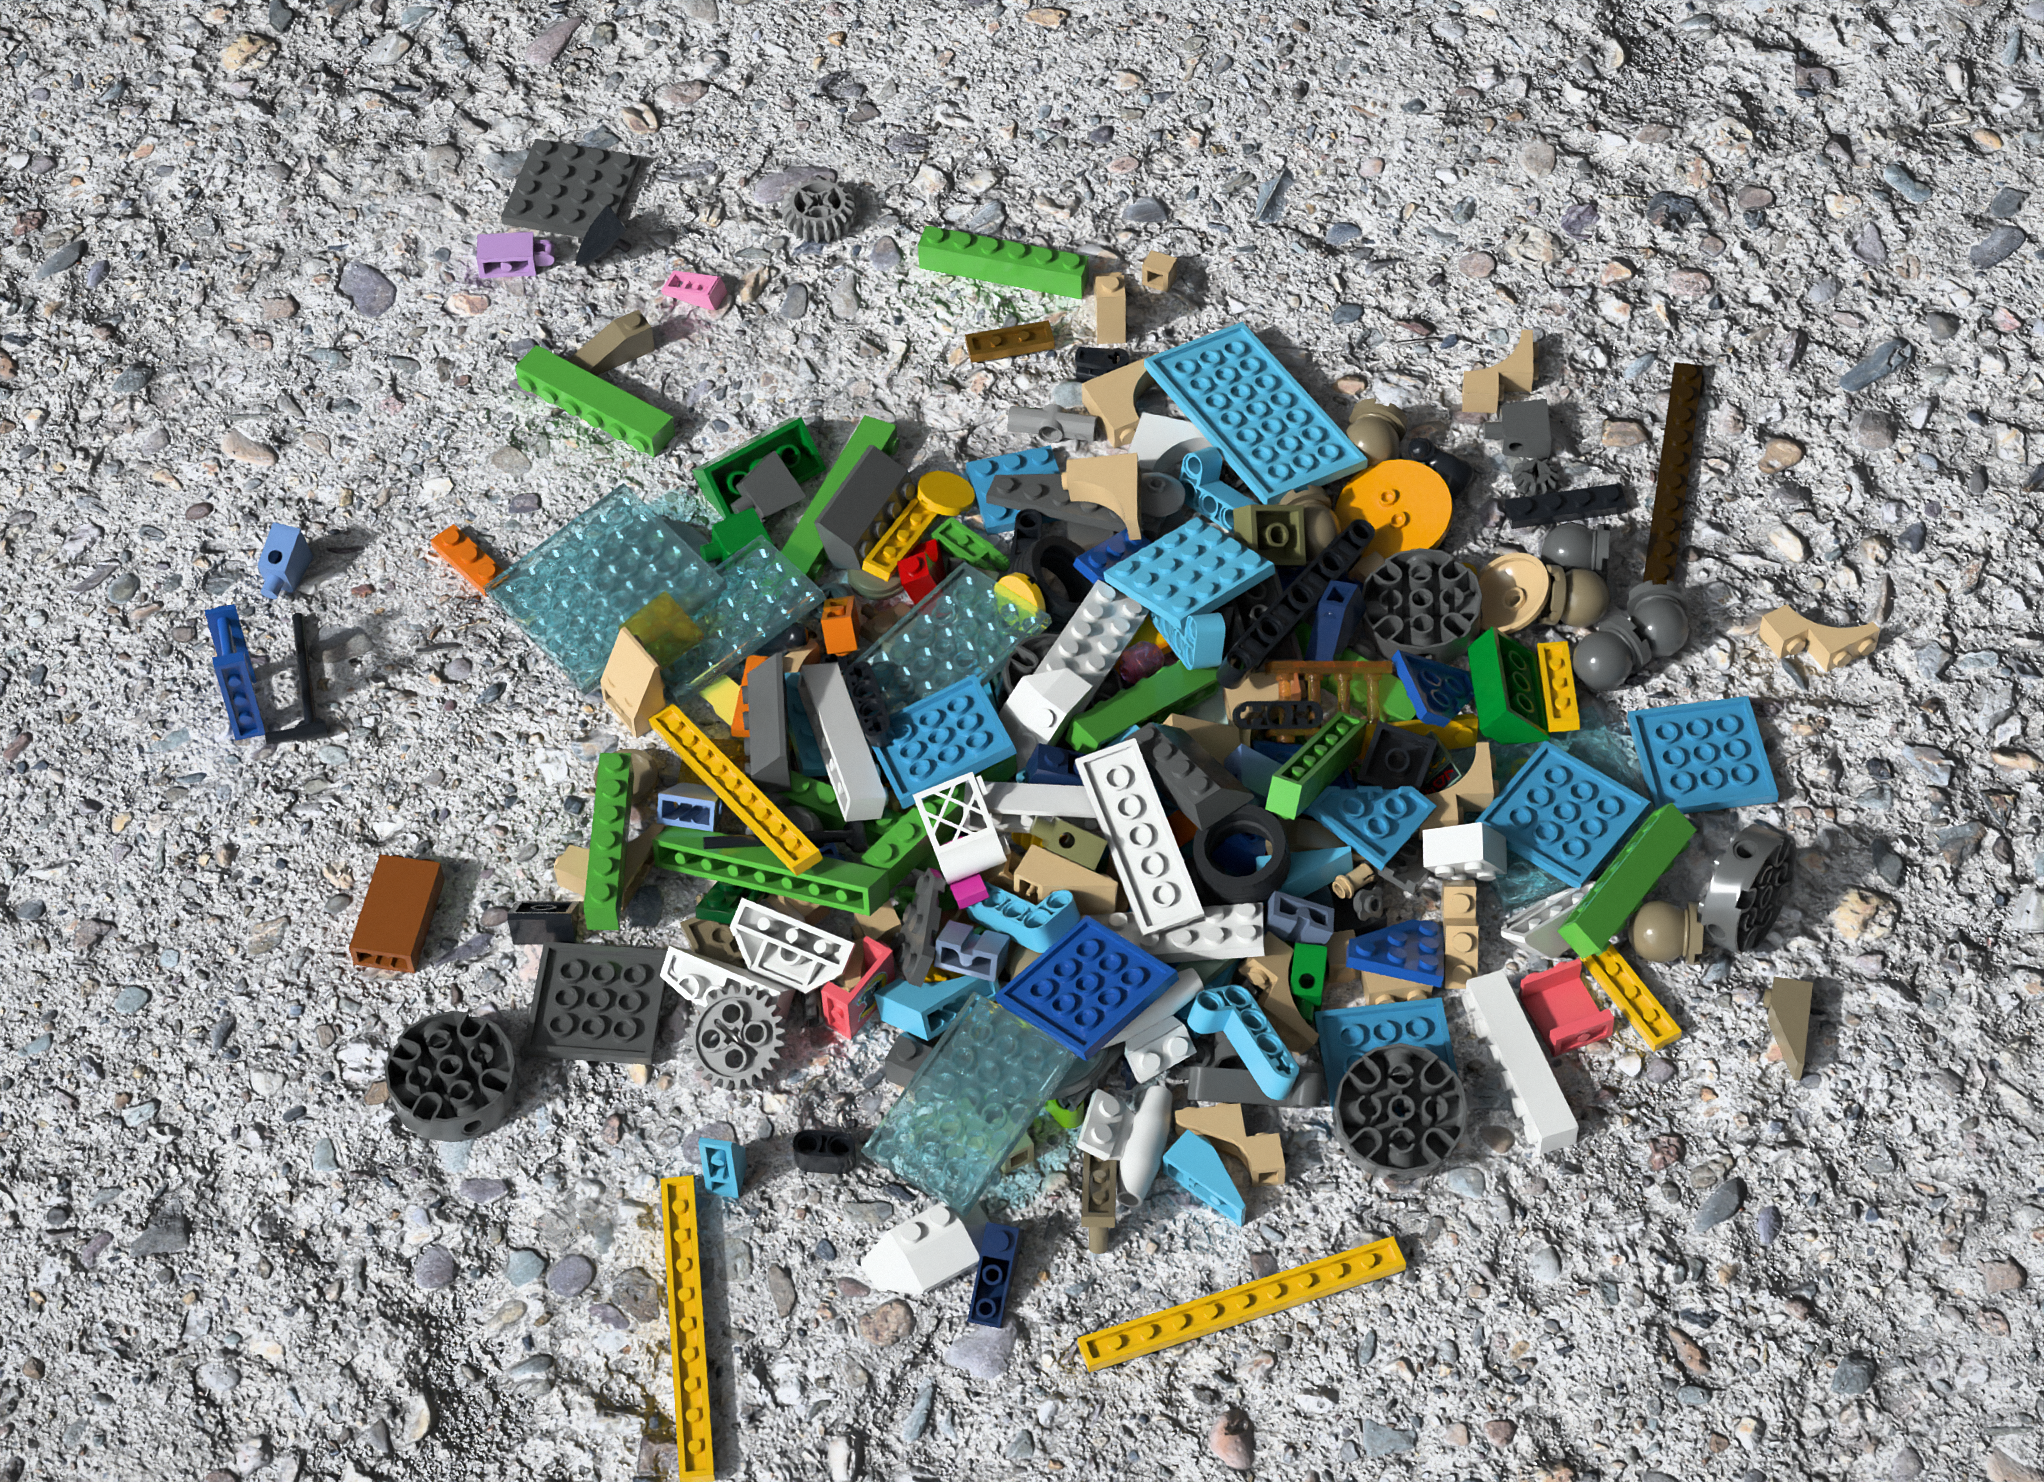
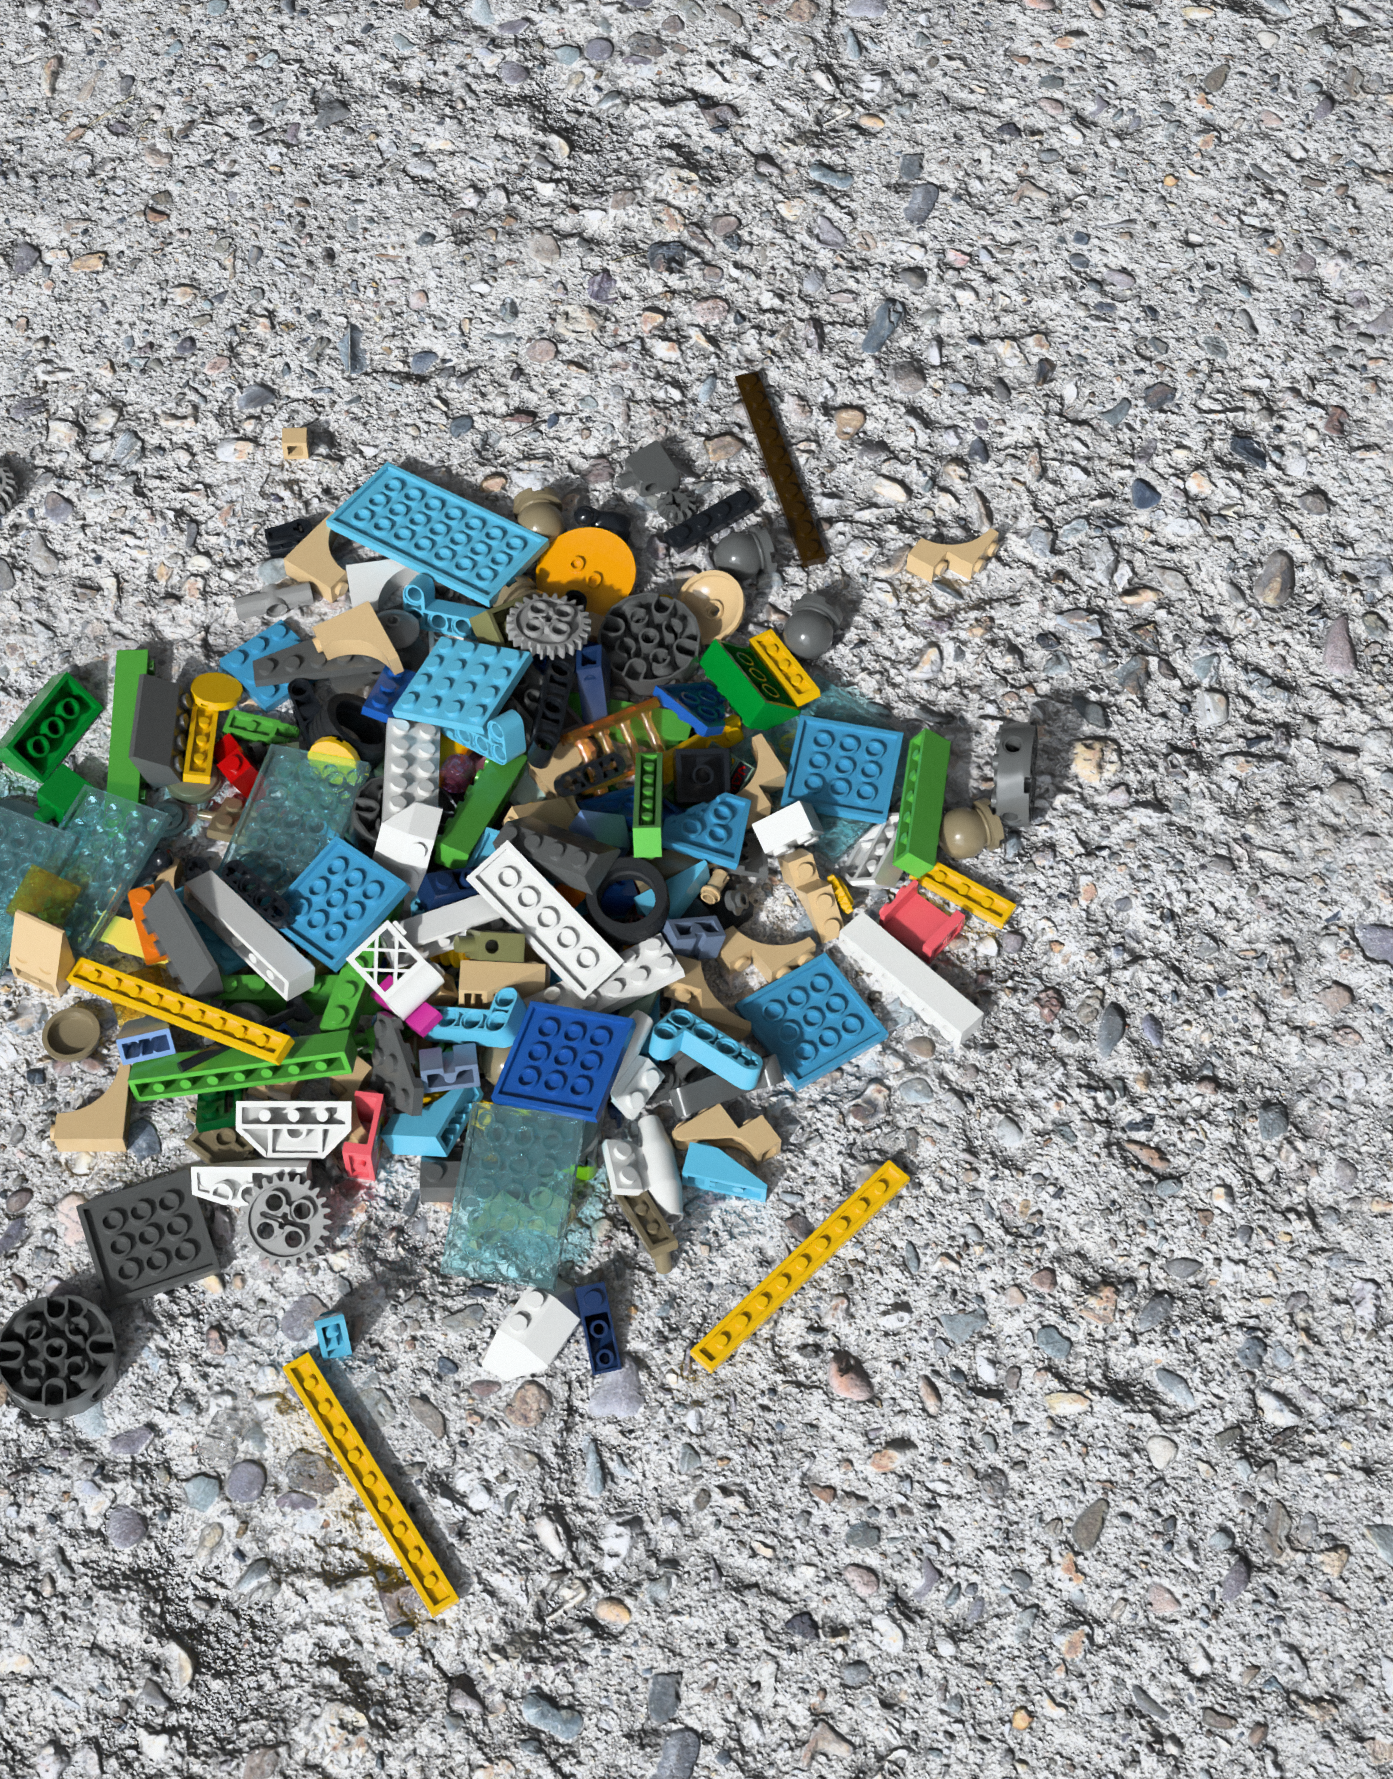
camera: 30 degrees left, 5 degrees up
(543, 922) = (65, 1188): black slope -> none
(609, 841) = (93, 1098): bright green brick -> none
(767, 488) = (66, 742): dark grey torso -> none
(824, 1156) = (408, 1290): black beam -> none
(840, 625) = (191, 836): orange brick -> none
(1003, 262) = (163, 480): bright green brick -> none
(1009, 341) = (202, 544): pearl gold plate -> none
(1110, 307) = (272, 485): tan arch -> none
(1308, 979) = (721, 978): green torso -> none
(1310, 545) = (548, 626): none -> light grey gear
(1401, 951) = (780, 928): blue plate -> none
(1428, 1097) = (852, 1032): dark grey brick -> none
(1490, 943) = (841, 894): none -> yellow gear
(1515, 374) = (604, 448): tan arch -> none
(1575, 598) = (764, 590): dark tan tile -> none
(1660, 616) = (833, 581): dark grey tile -> none
(1703, 755) = (917, 681): dark azure plate -> none
(1789, 1019) = (1089, 864): dark tan slope -> none

